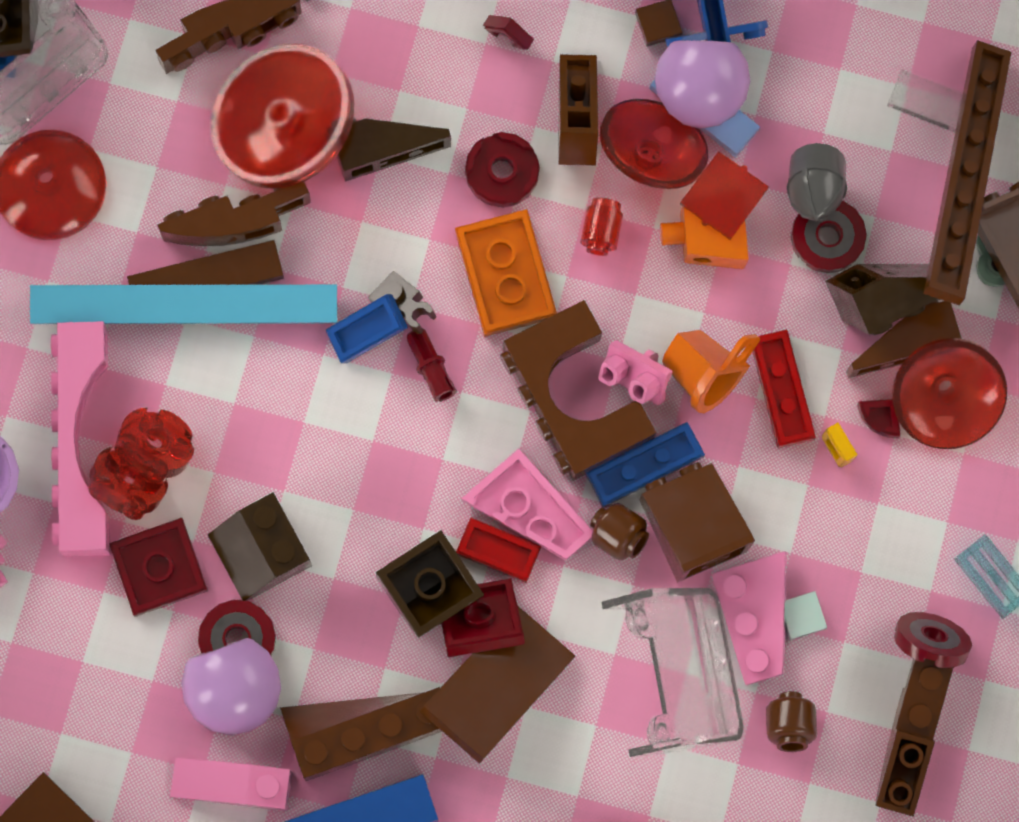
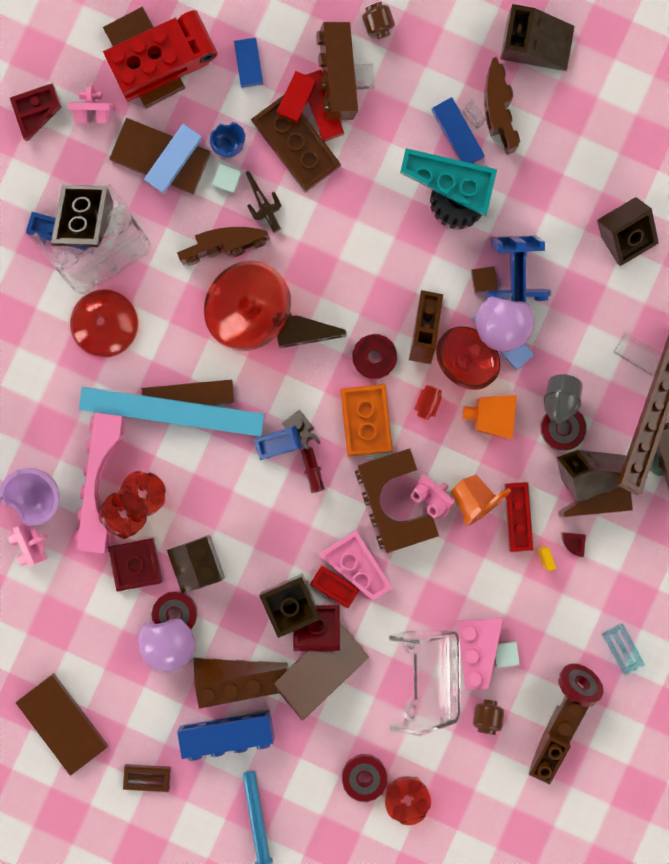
camera: 20 degrees right, 10 degrees up
(221, 225) = (201, 364): reddish brown slope -> none
(232, 783) = (159, 700): bright pink slope -> none
(510, 28) = (390, 268): dark red tile -> none
(619, 531) = (407, 589): reddish brown head -> none
(645, 464) = (430, 550): blue tile -> none
(695, 520) = (453, 592): reddish brown slope -> none
(724, 195) = (505, 397): clear red piece -> none
(953, 415) = (621, 548): clear red dish -> none

